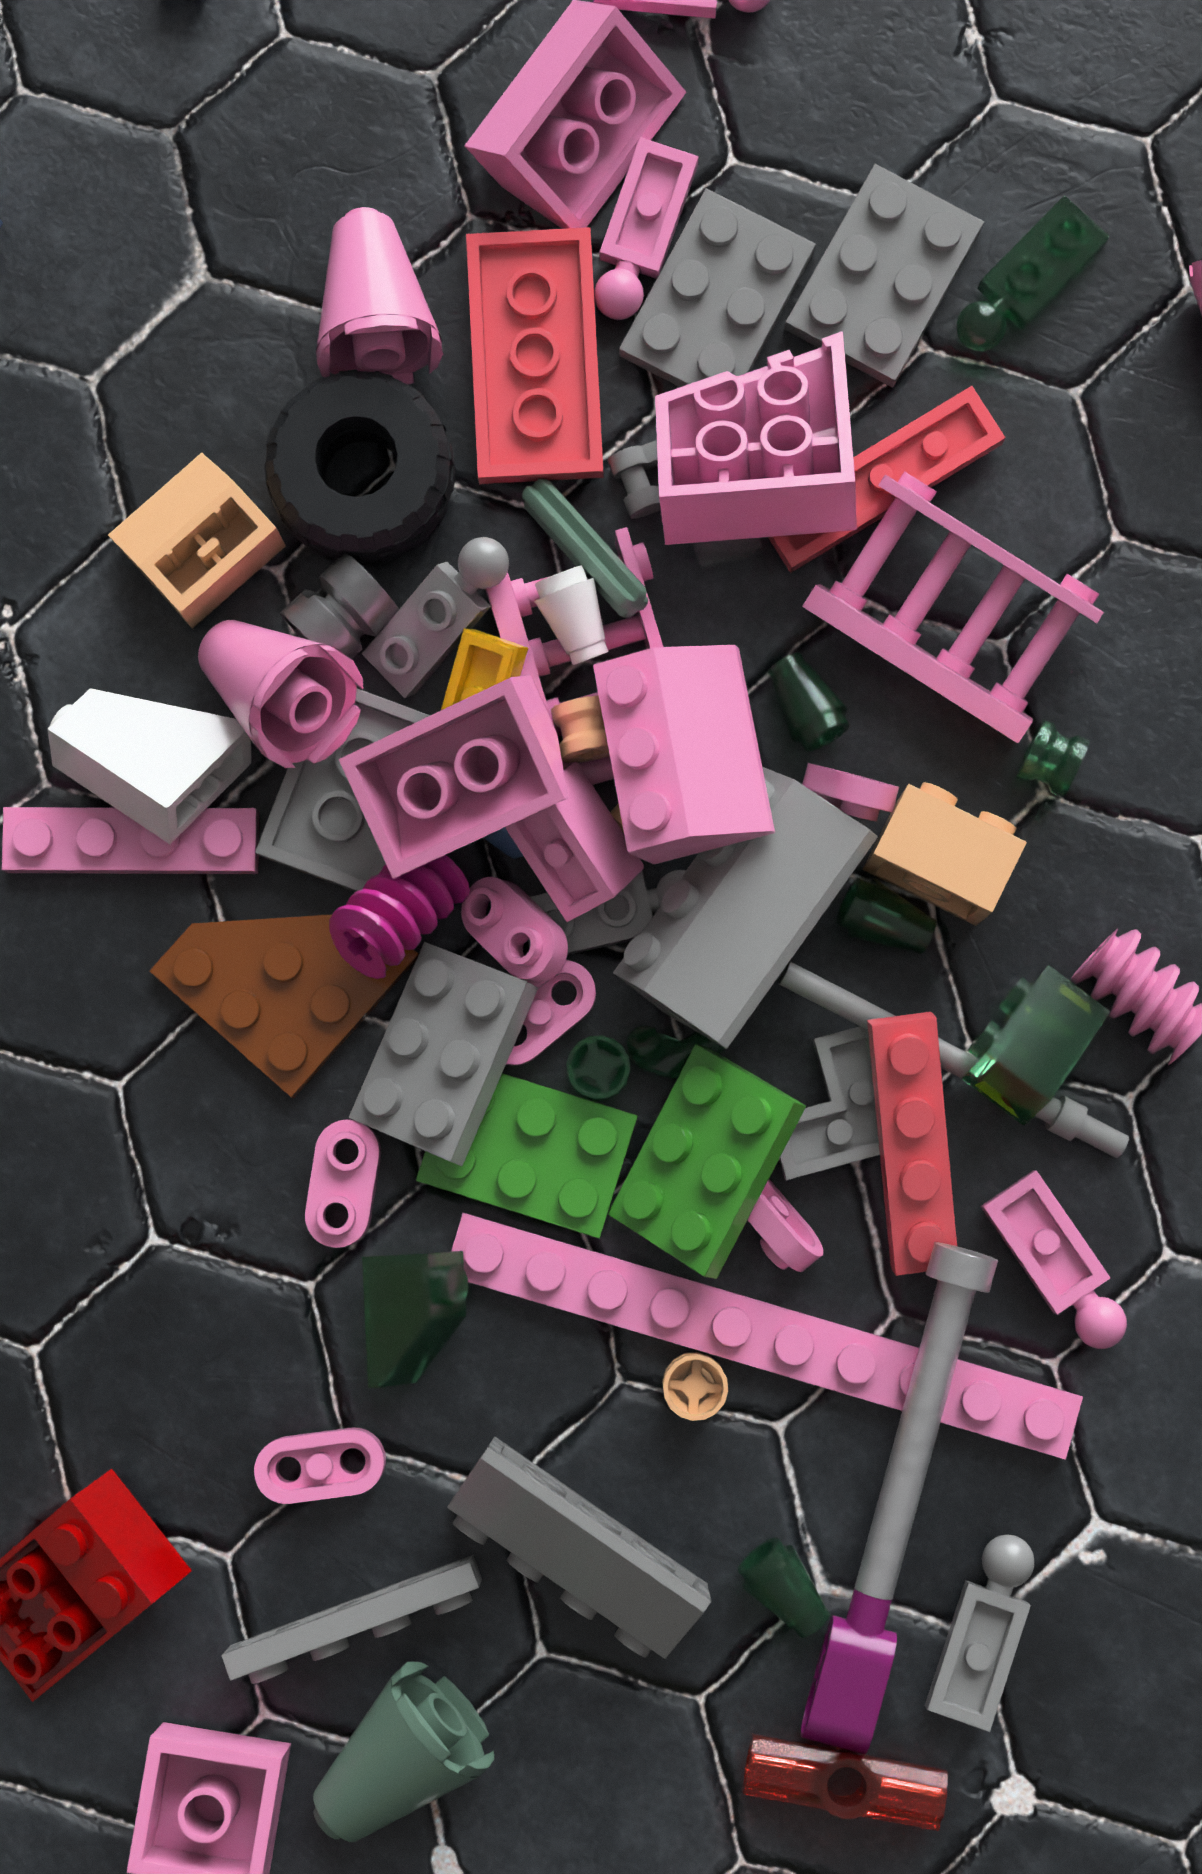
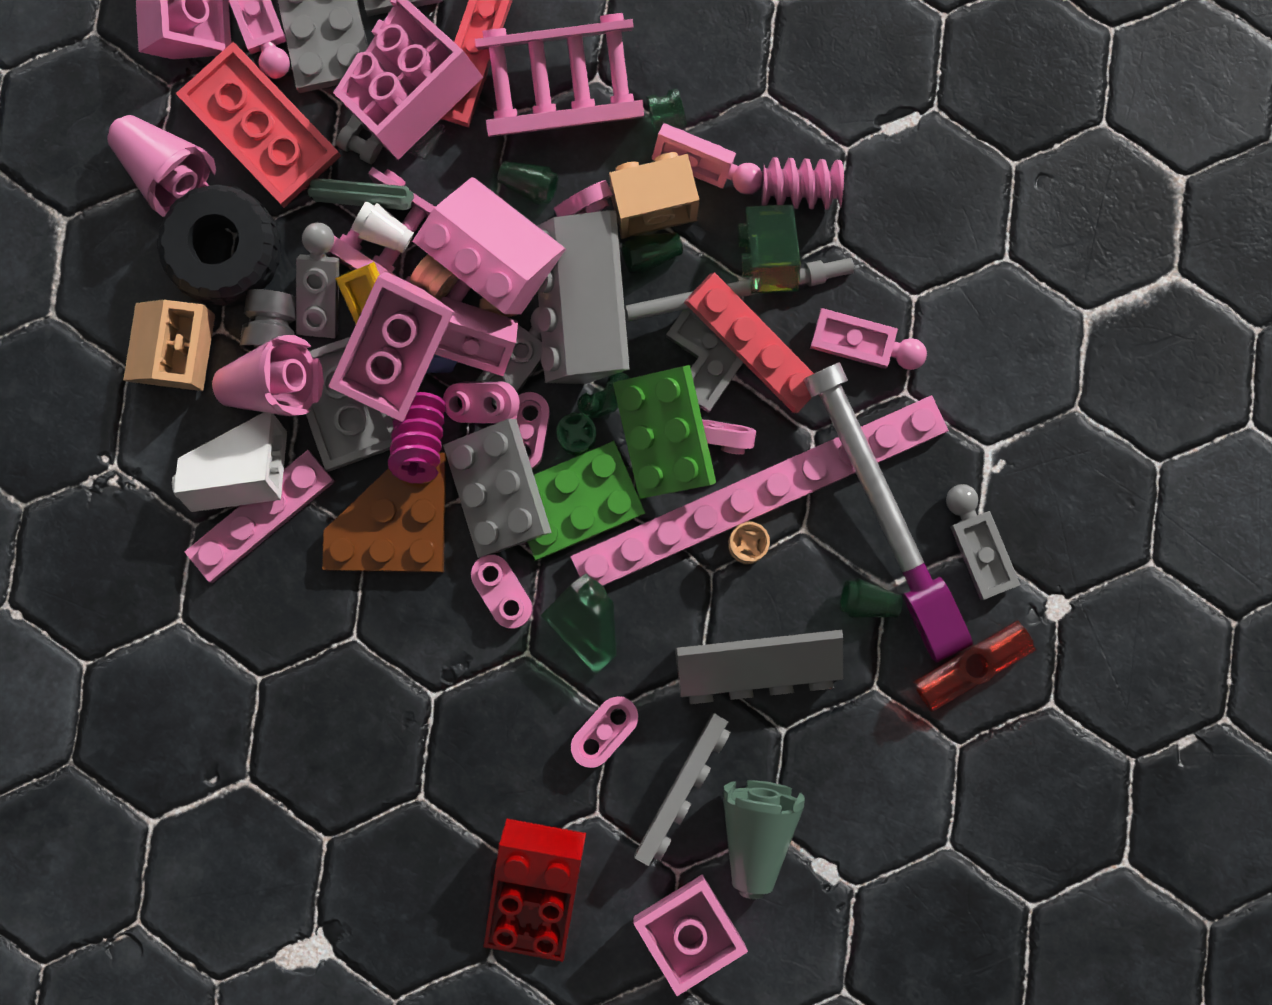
camera: 45 degrees left, 0 degrees up
(1051, 864) = (709, 160): none -> bright pink plate

